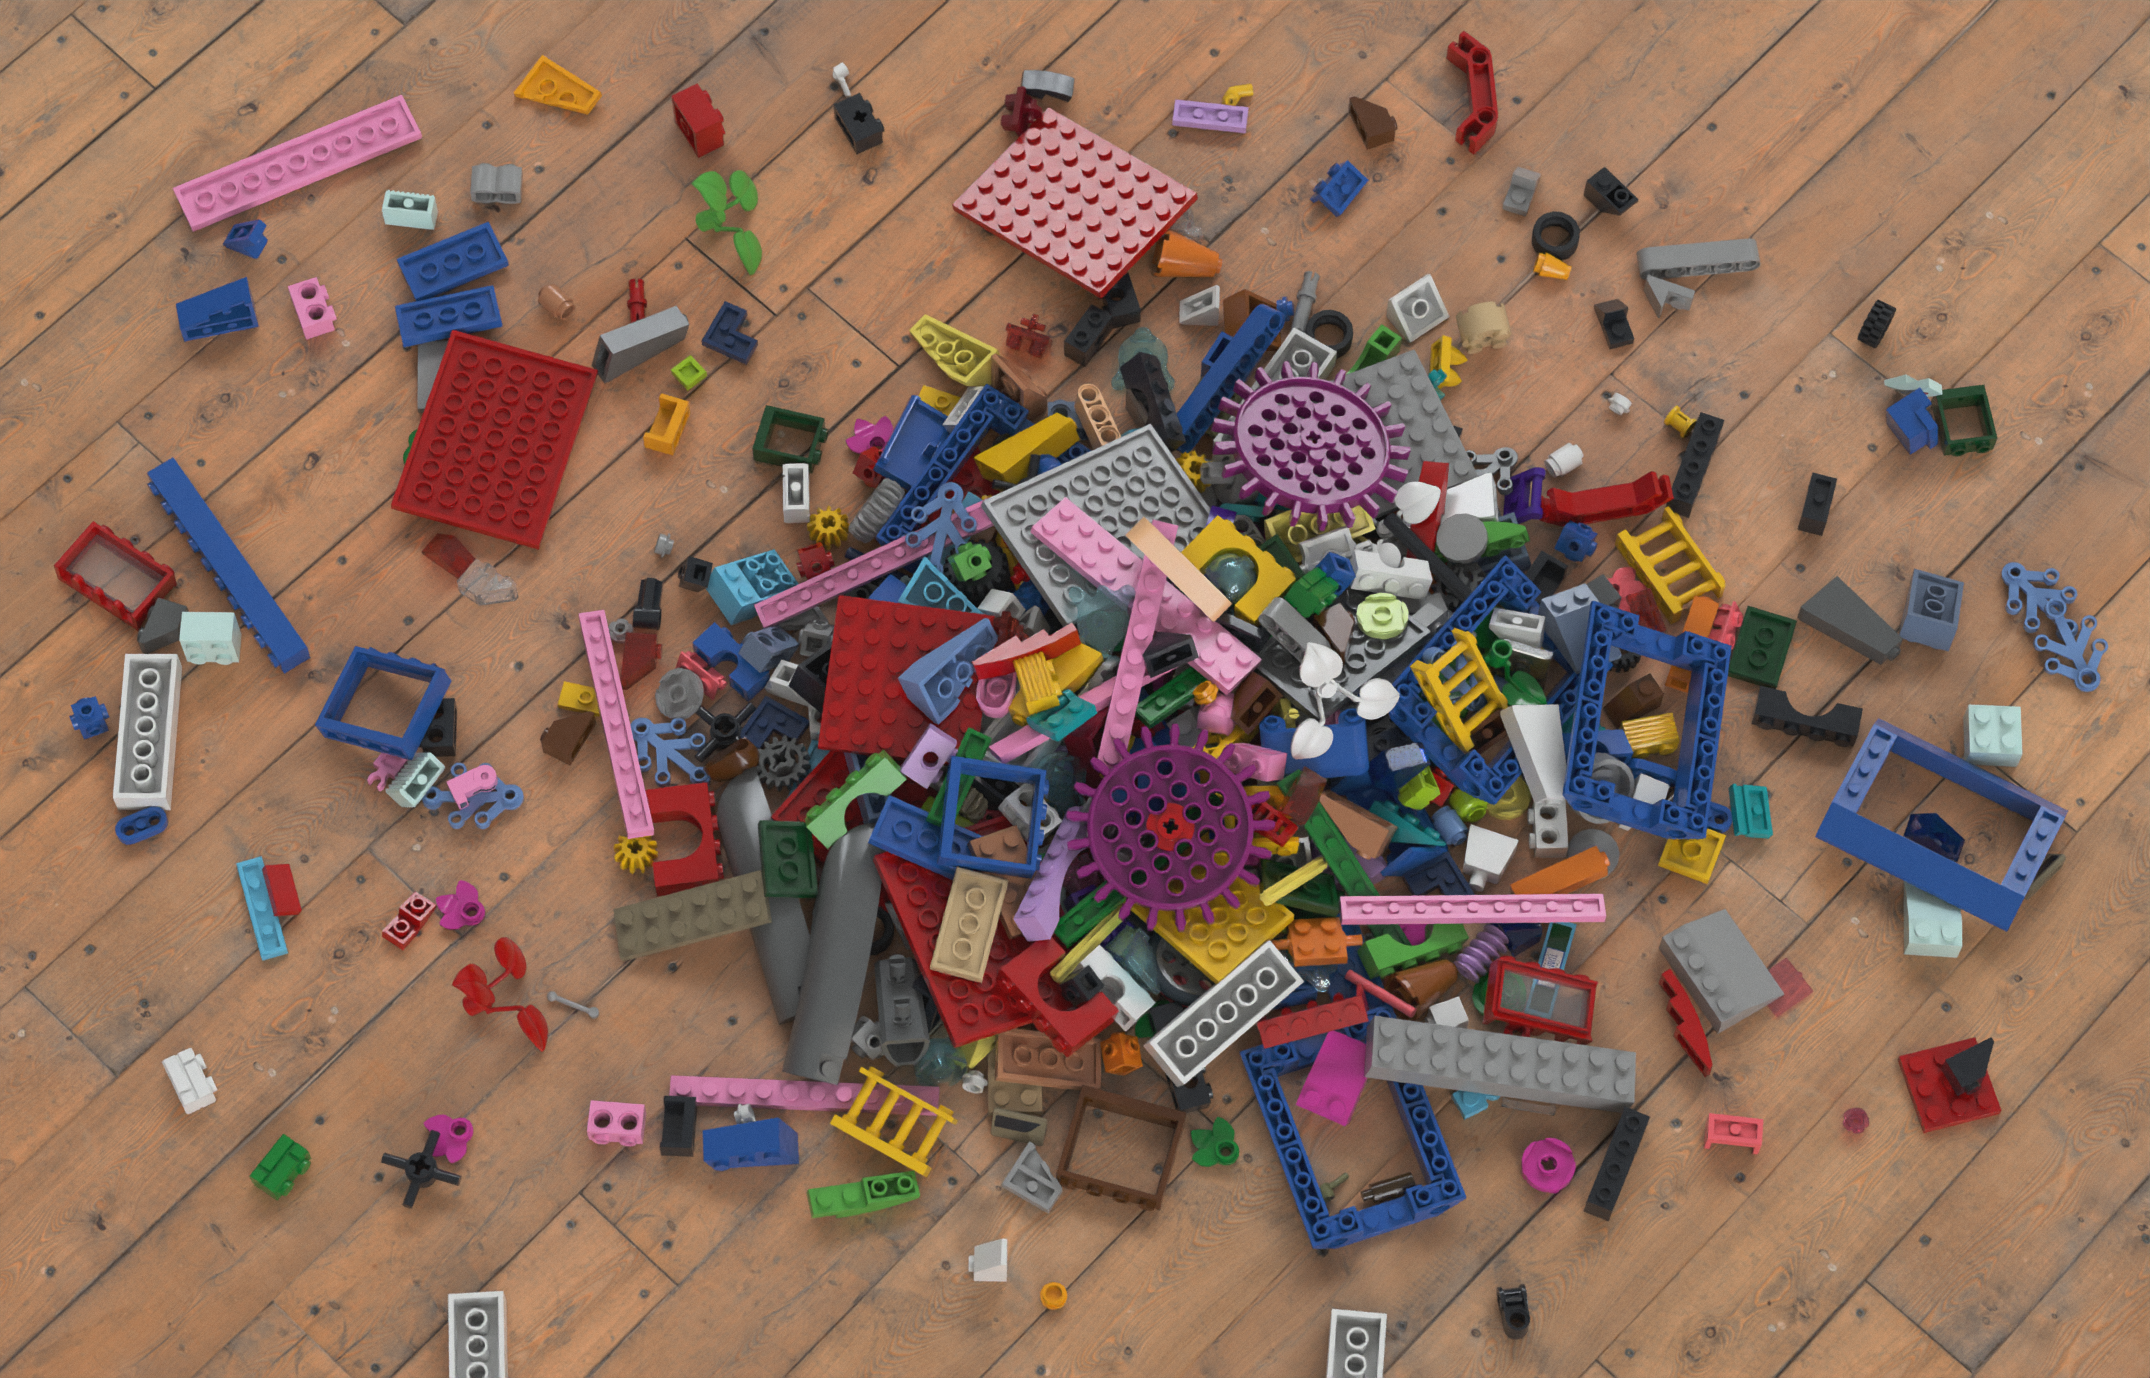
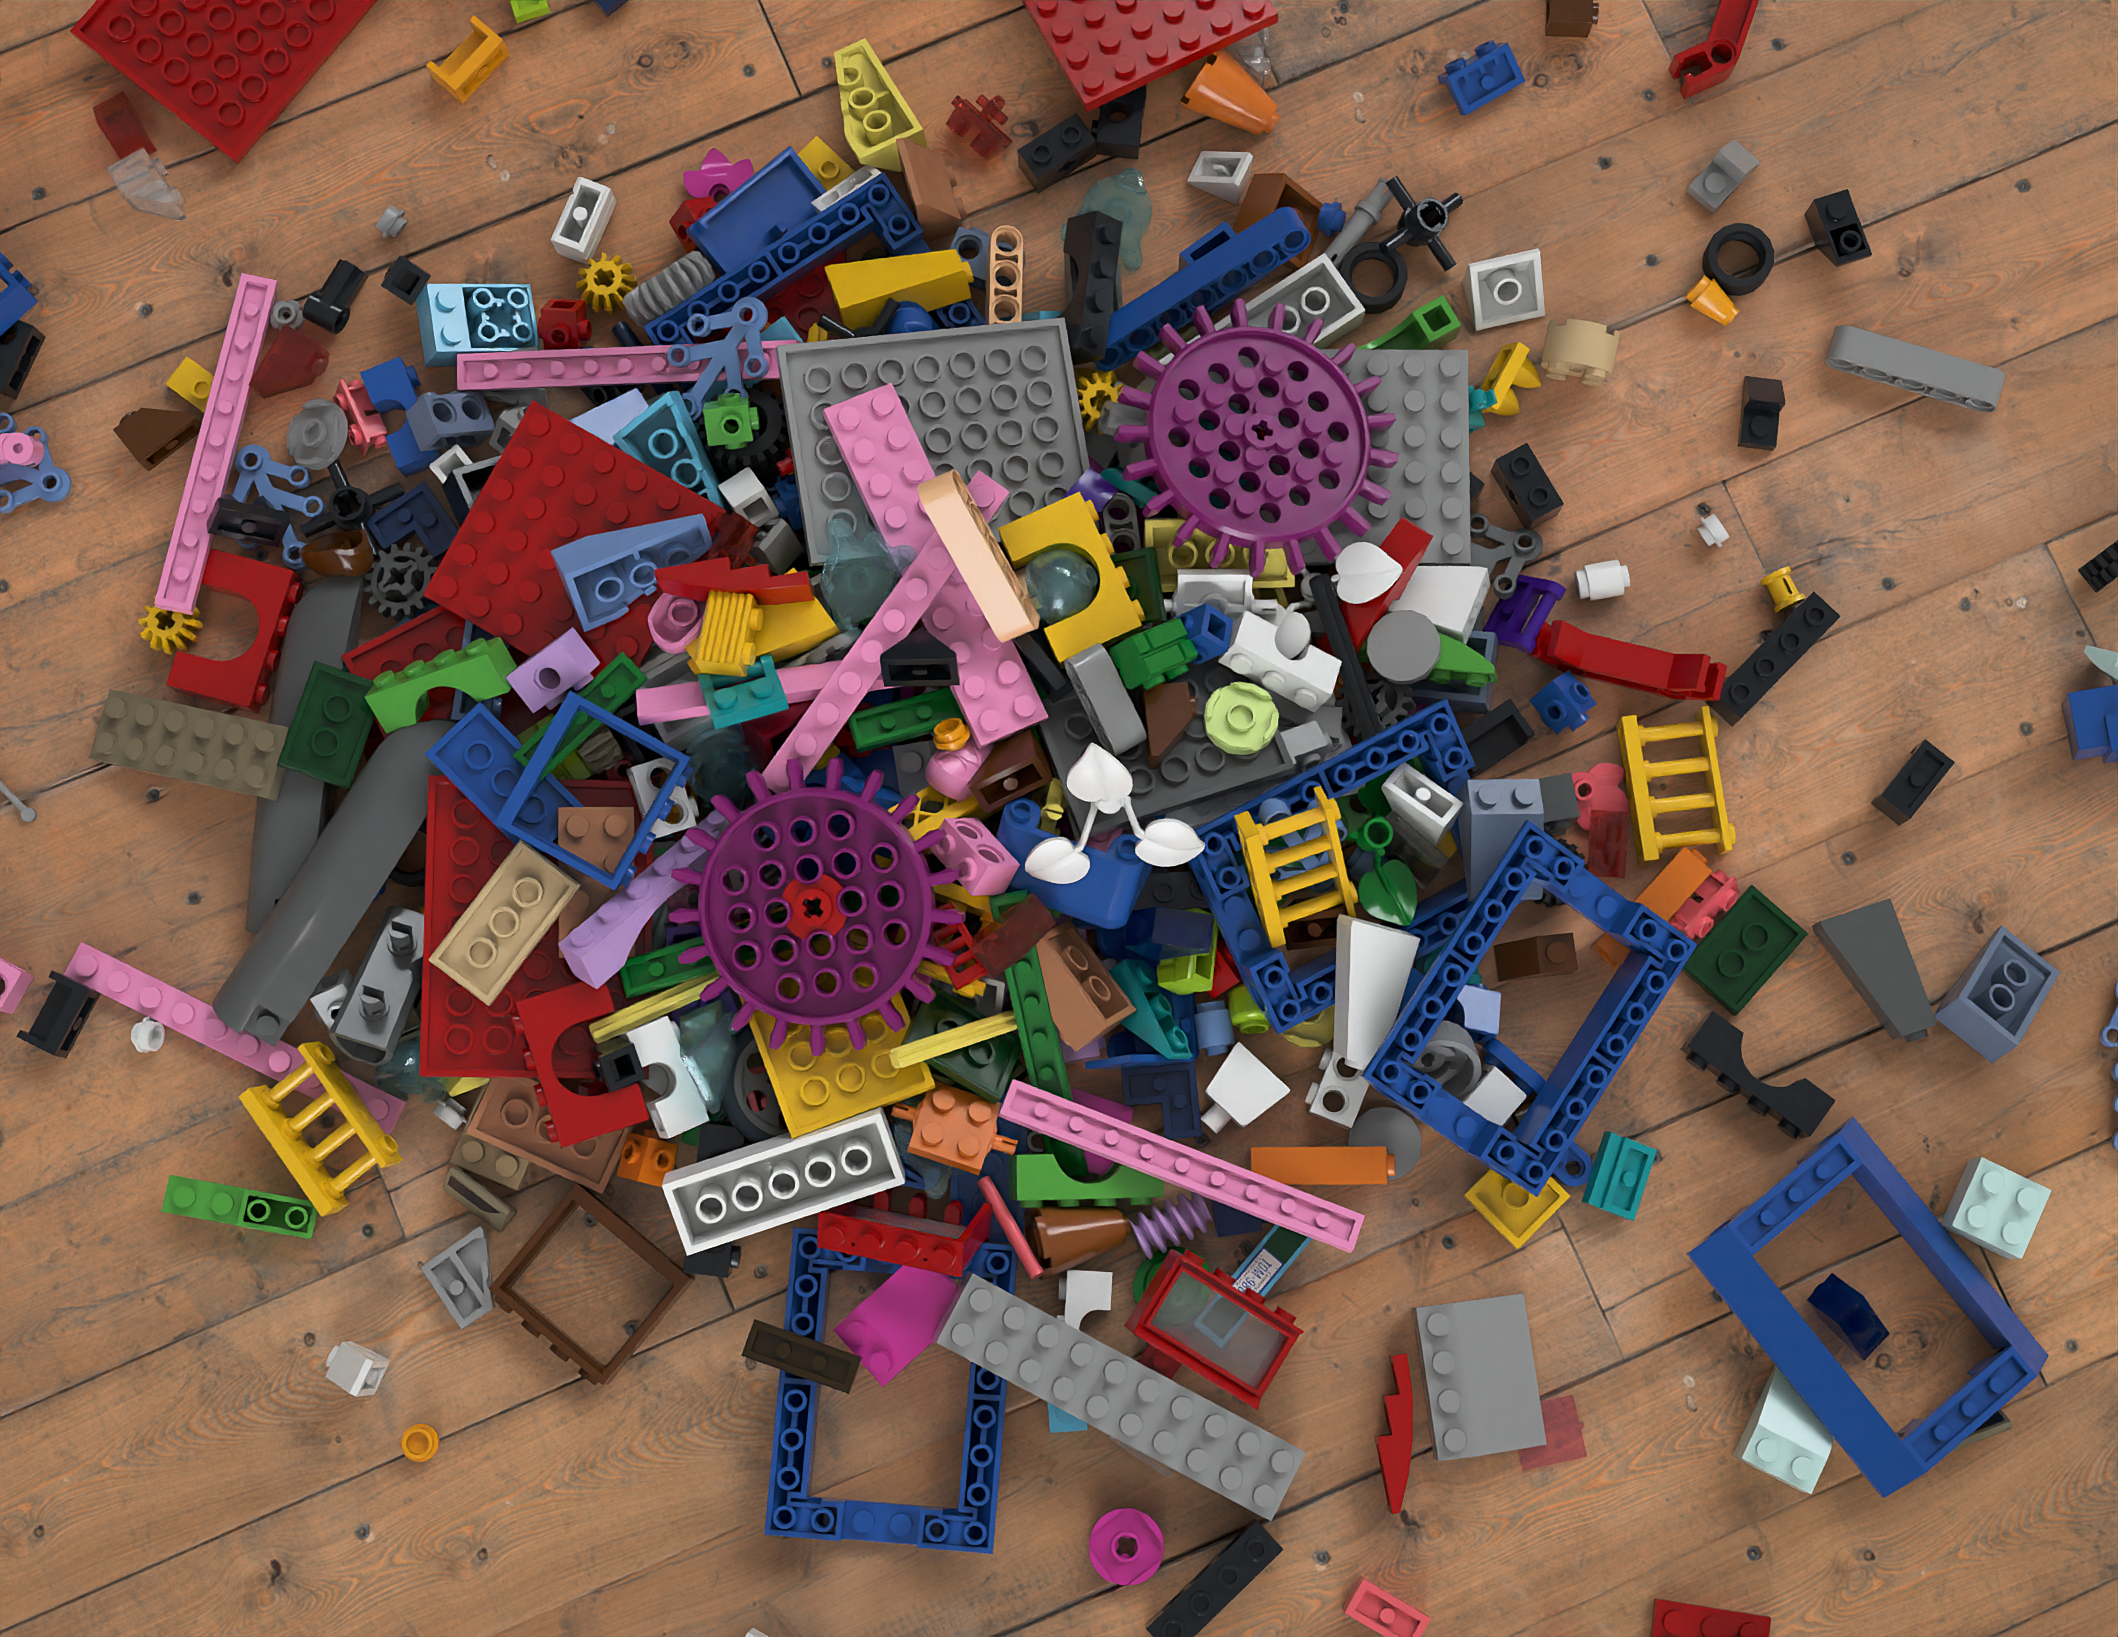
camera: 30 degrees right, 15 degrees up
(663, 761) = (248, 522): none -> black tile
(751, 1145) = (132, 1082): blue wedge -> none
(791, 419) = (588, 118): dark green window -> none
(1213, 1142) = (712, 1324): green plate -> none
(1285, 1124) = (801, 1356): none -> dark brown tile
(1327, 1188) = (825, 1454): olive hand -> none
(1344, 289) = (1421, 223): none -> black bar
(1388, 1188) = (907, 1487): dark brown cylinder -> none
(1489, 421) = (1526, 487): none -> black brick
(1651, 735) = (1536, 1014): yellow brick -> none
(1662, 292) = (1842, 395): light grey slope -> none

